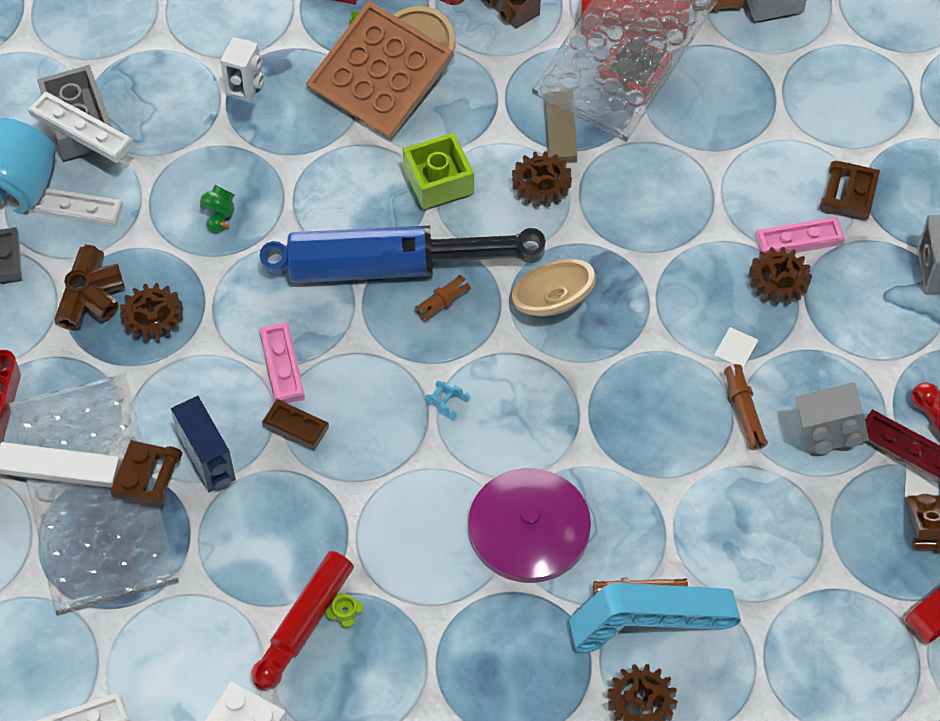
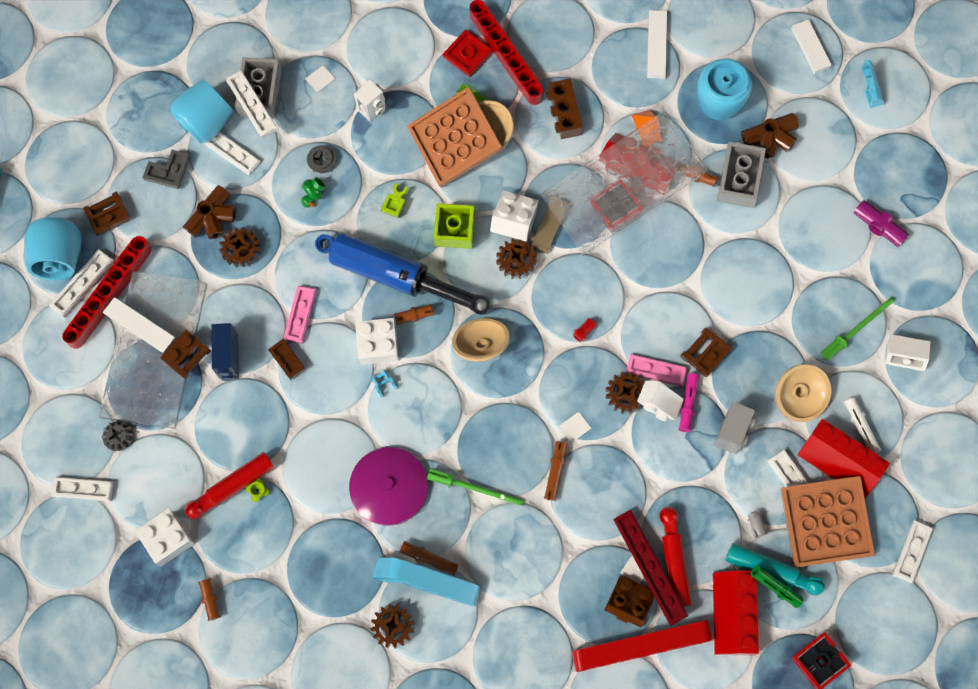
camera: 30 degrees right, 15 degrees up
(97, 640) = (126, 435): none -> dark grey gear
(153, 77) = (320, 78): none -> white sticker
(215, 158) = (316, 153): none -> dark grey gear
(339, 177) = (394, 203): none -> lime plate
(411, 348) = (377, 341): none -> white brick
(512, 127) = (514, 215): none -> white brick
(609, 478) = (447, 479): none -> bright green piece
(678, 232) = (581, 333): none -> red pin
(831, 260) = (660, 400): none -> white brick
(832, 418) = (597, 508): light grey brick -> none
(869, 264) = (687, 410): none -> dark pink pin

